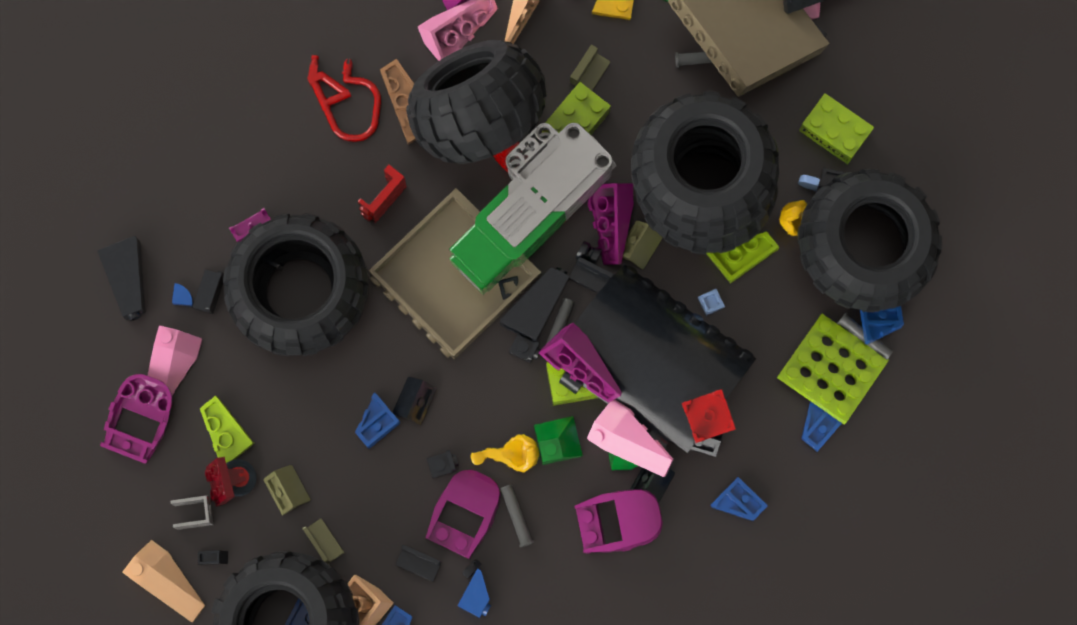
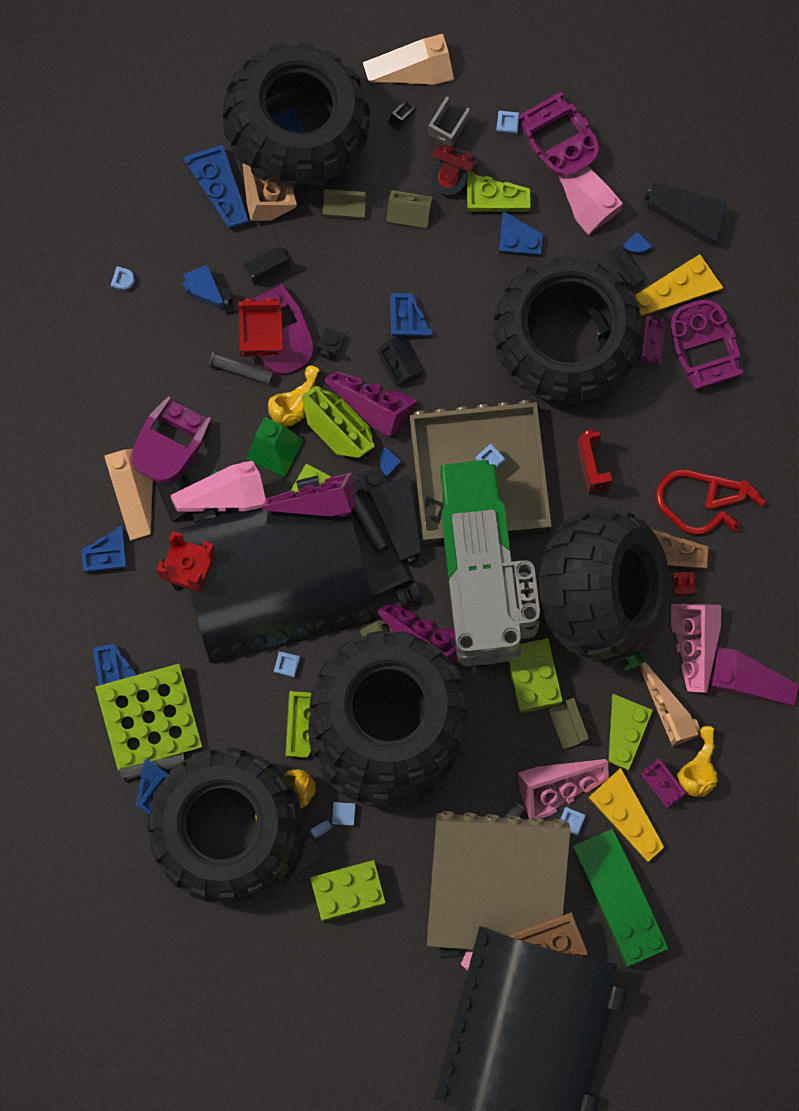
camera: 130 degrees right, 0 degrees up
(156, 469) = (507, 122): none -> light blue tile
(190, 239) = (681, 285): none -> yellow wing
(212, 202) = (698, 325): none -> magenta slope
(245, 388) = (518, 237): none -> blue wing
(418, 66) = (684, 583): none -> red tile
(440, 270) = (491, 455): none -> light blue tile
(463, 389) = (378, 407): none -> magenta wedge
(476, 521) = (260, 328): none -> red panel
(500, 348) = (388, 462): none -> blue tile
(502, 404) = (337, 423): none -> lime wedge
(559, 28) = (626, 730): none -> lime wing
(643, 48) = (553, 785): none -> bright pink wedge
(657, 17) = (574, 818): none -> light blue tile
(679, 518) = (133, 493): none -> light nougat wedge
(786, 176) = (343, 814): none -> light blue tile

